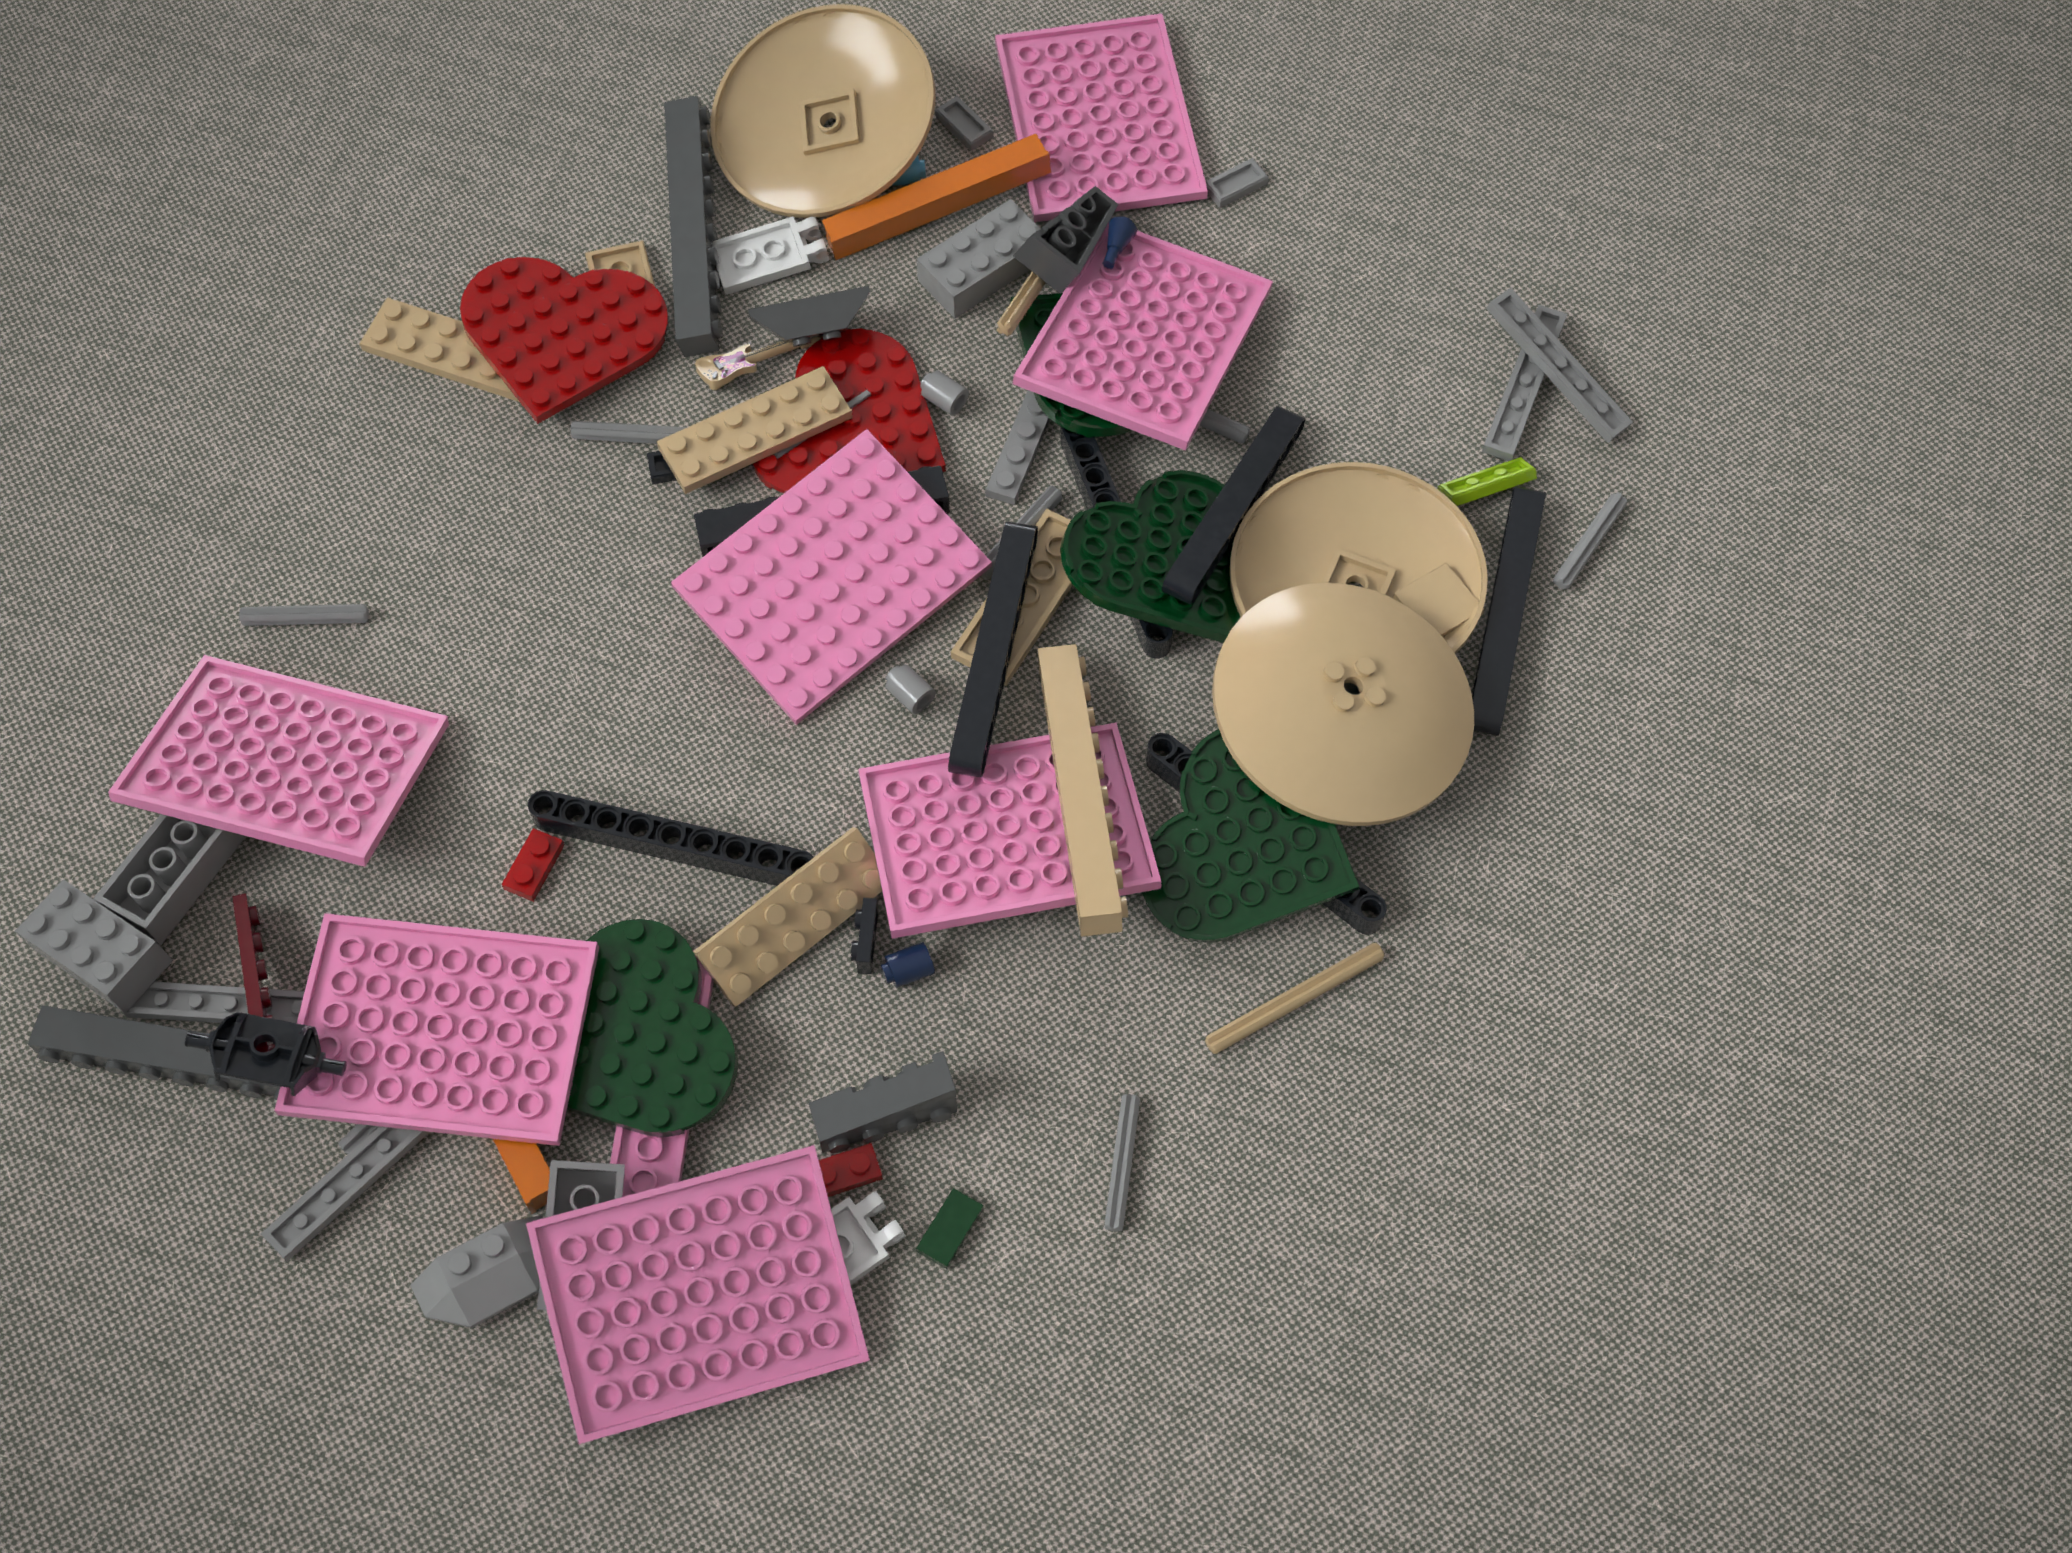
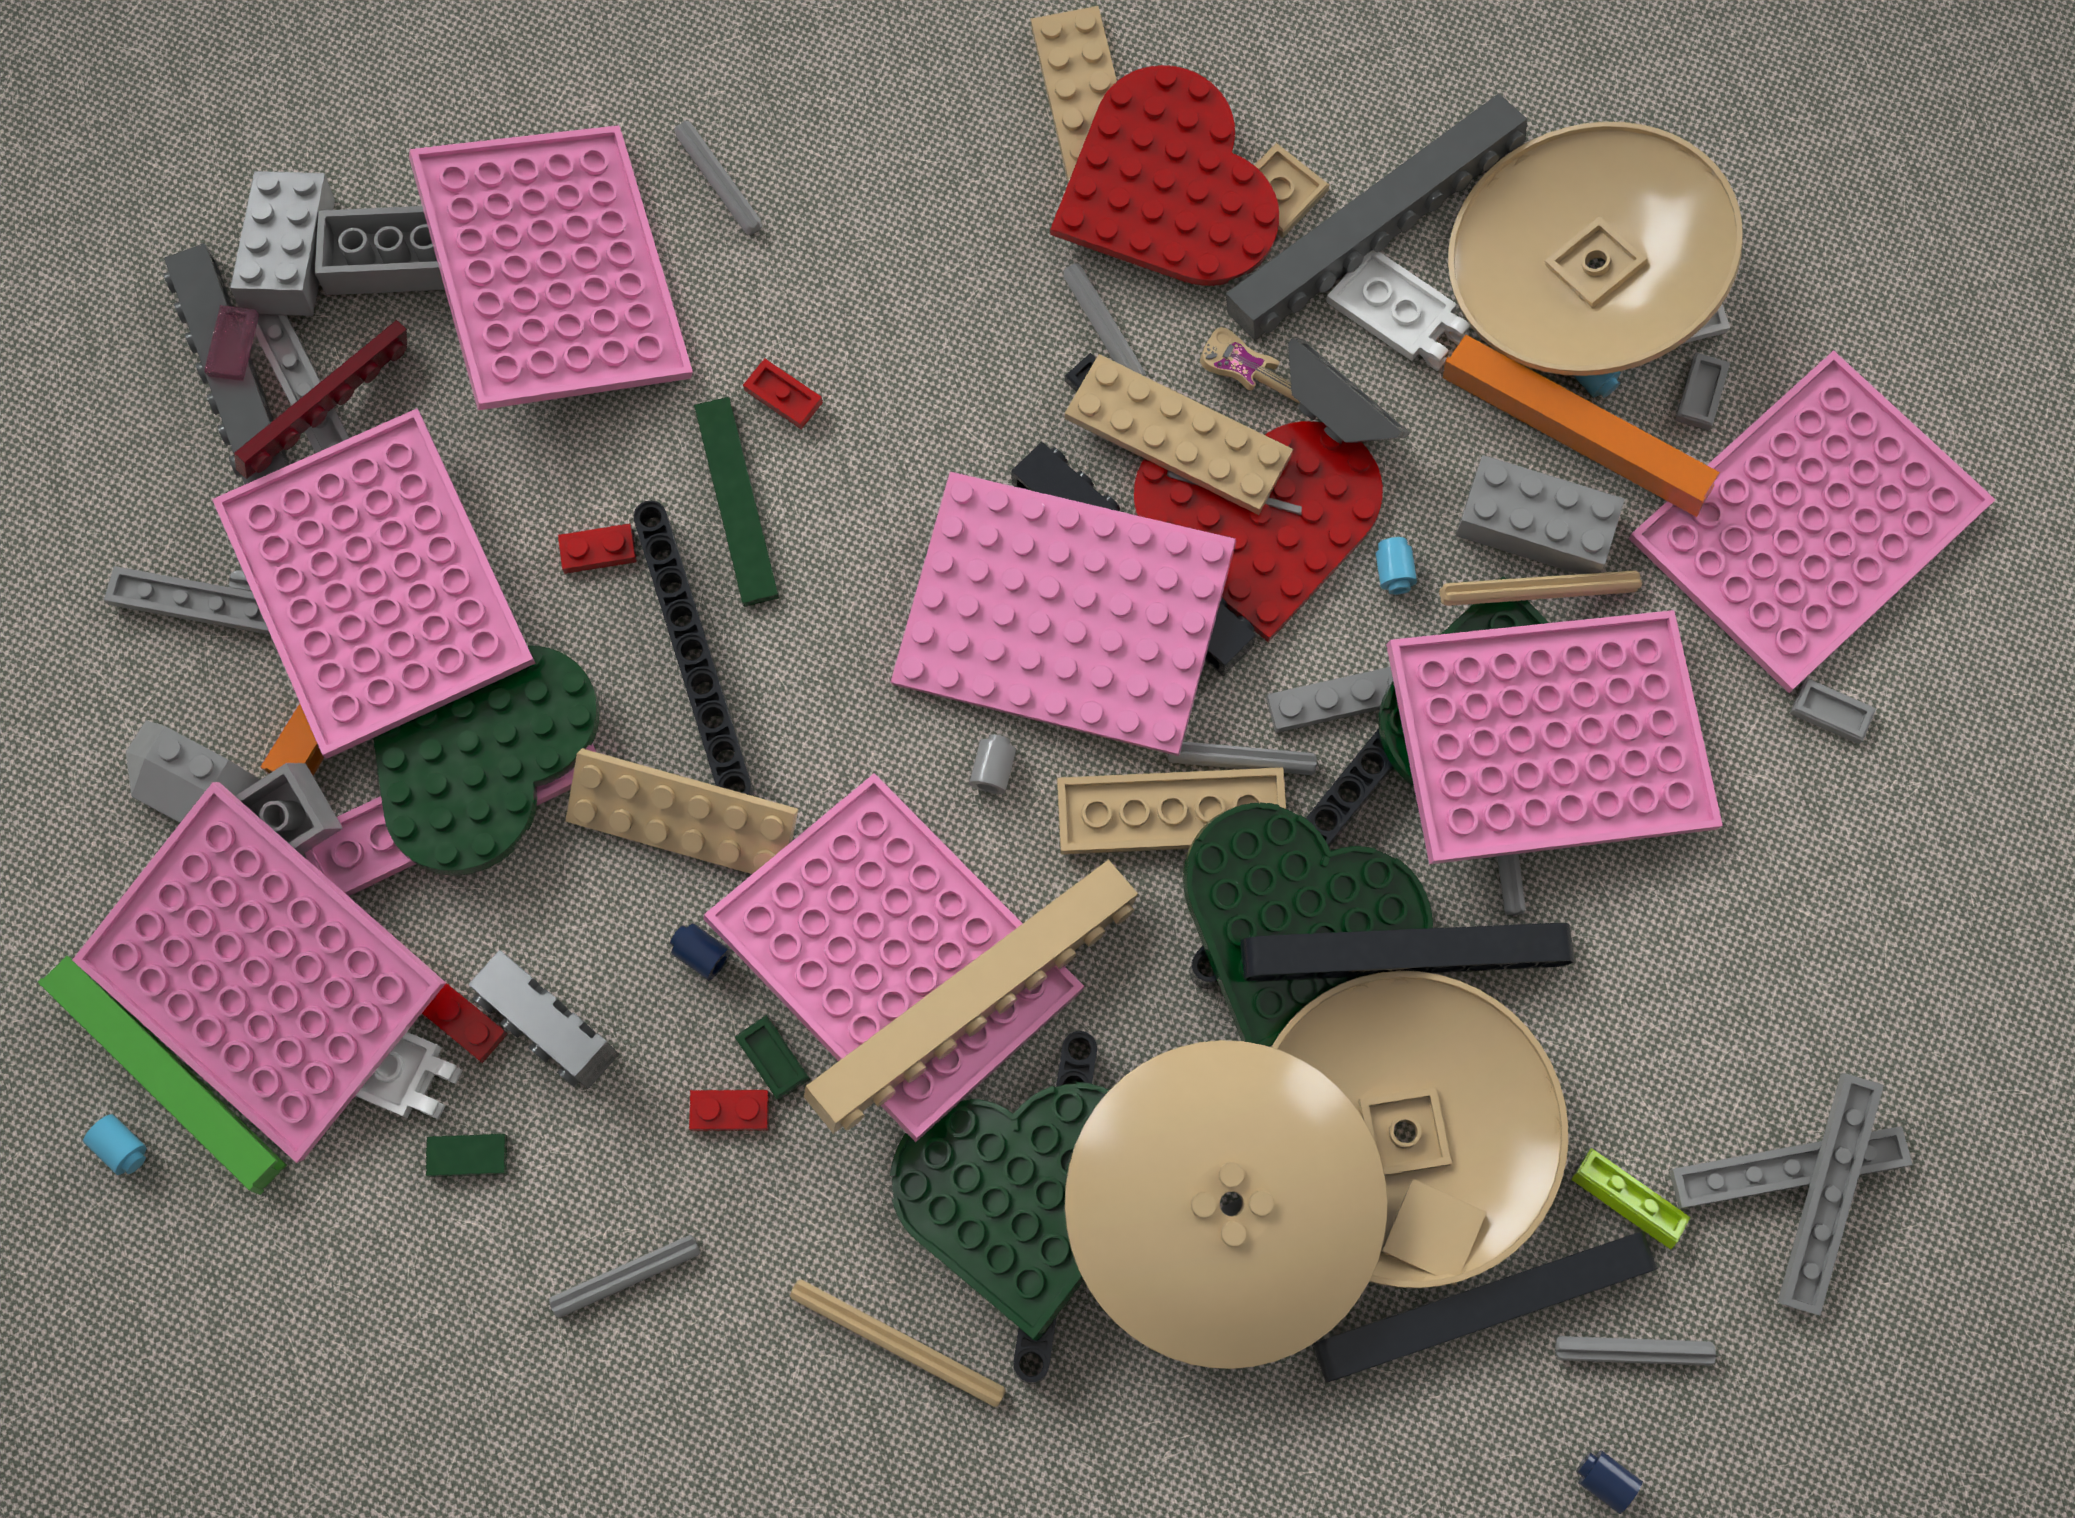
camera: 60 degrees right, 10 degrees up
(148, 1028) = (231, 342): none -> clear pink tile
(289, 1064) = (248, 483): black plate -> none
(514, 666) = (782, 393): none -> red plate
(572, 747) = (736, 502): none -> dark green tile
(720, 1429) = (164, 1076): none -> bright green tile
(757, 1499) = (115, 1145): none -> medium azure brick
(866, 921) = (691, 900): black plate -> none
(944, 392) = (1352, 582): light grey brick -> none
(952, 360) = (1396, 565): none -> medium azure brick
(993, 650) = (1080, 816): black beam -> none
(1023, 965) = (772, 1058): none -> dark green tile
(1043, 1017) = (729, 1110): none -> red plate
(1066, 242) = (1602, 589): dark grey wedge -> none
(1120, 234) = (1652, 636): dark blue cone -> none
(1669, 604) = (1608, 1480): none -> dark blue brick

